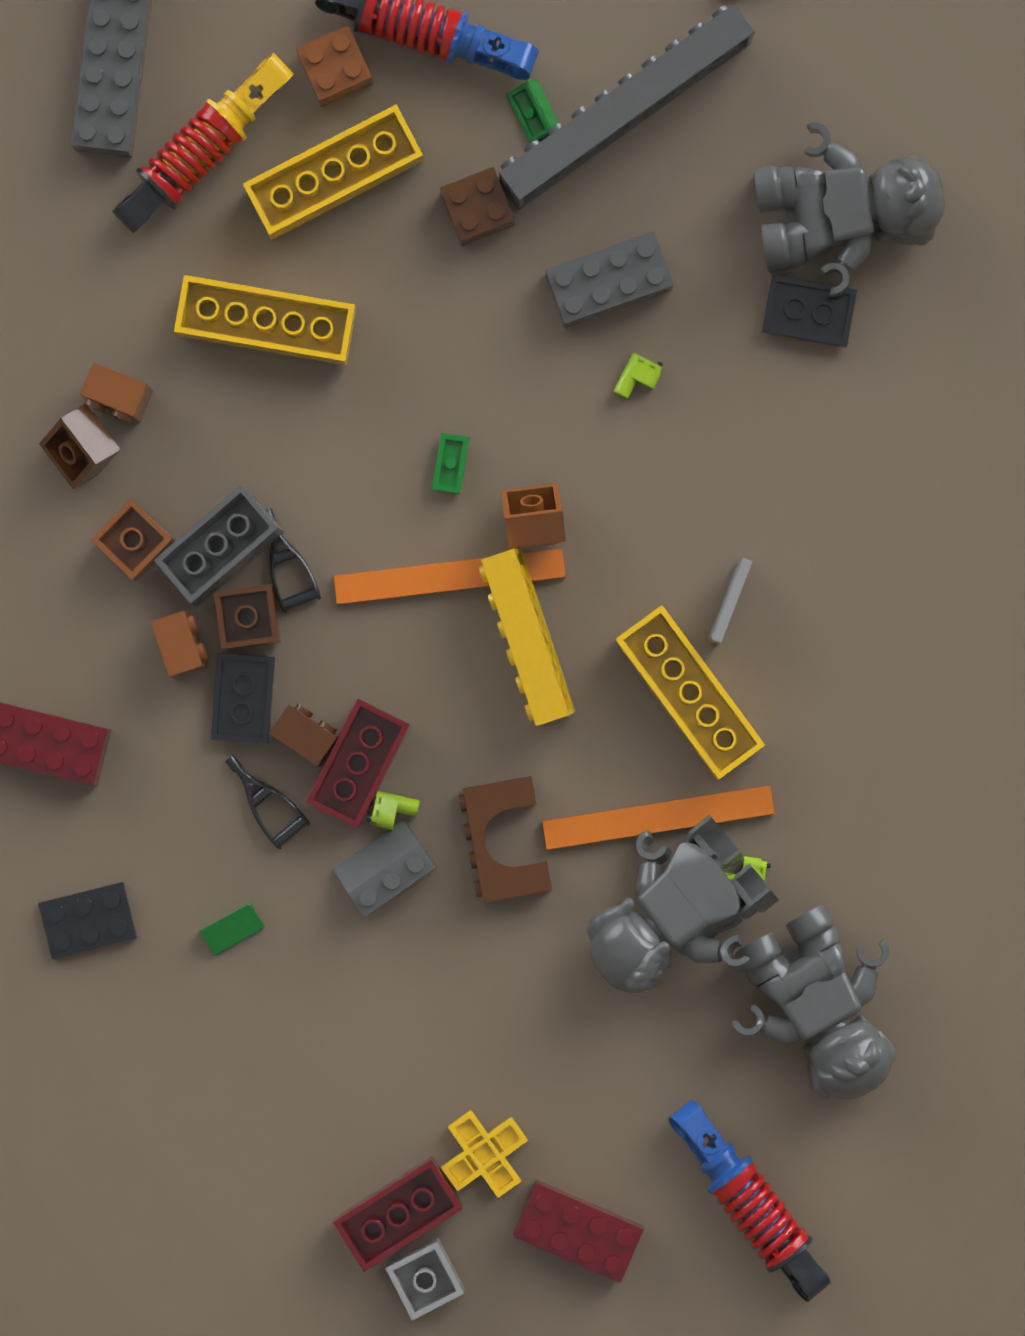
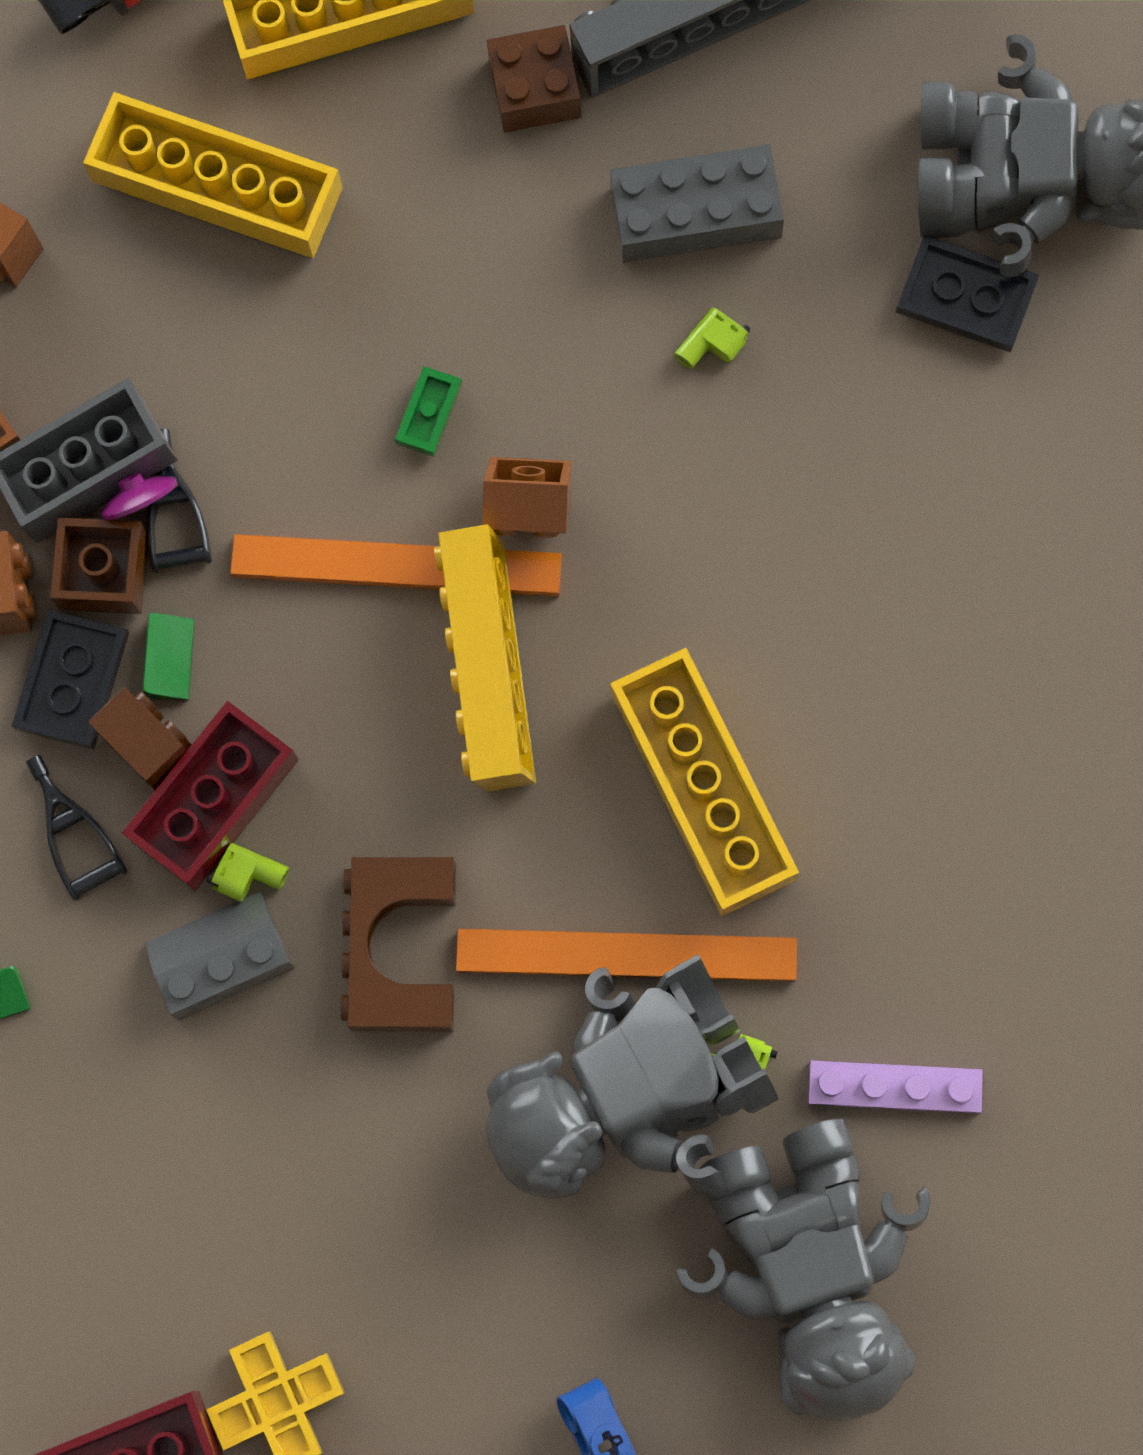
camera: 20 degrees right, 10 degrees down
(265, 566) = (137, 494): none -> magenta dish
(307, 670) = (168, 657): none -> green slope
(729, 601) = (784, 662): light grey tile -> none
(852, 872) = (895, 1087): none -> lavender plate

